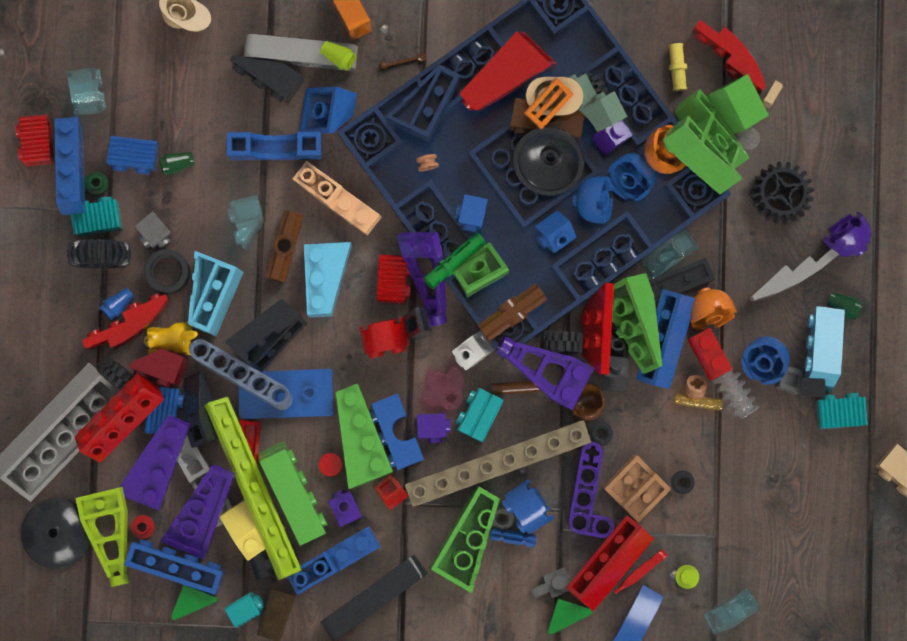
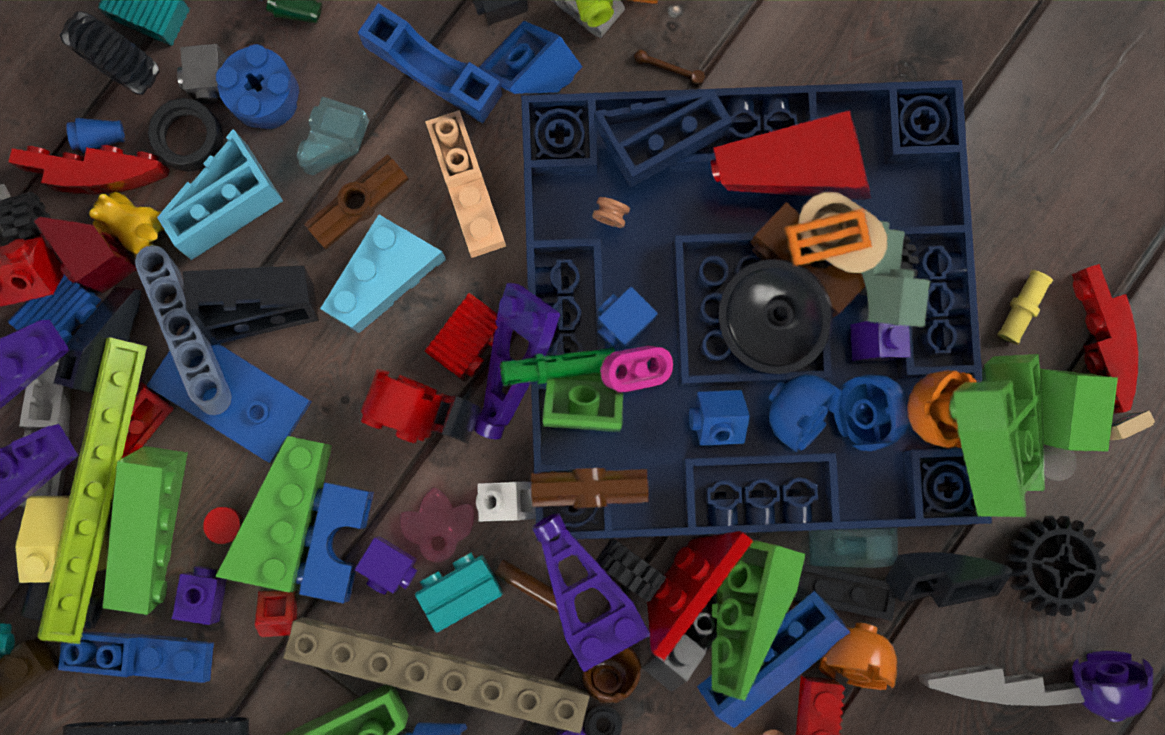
camera: 30 degrees right, 0 degrees up
(183, 208) = (244, 74): none -> blue brick
(494, 236) = (633, 368): none -> dark pink plate
(728, 237) = (946, 577): none -> black slope

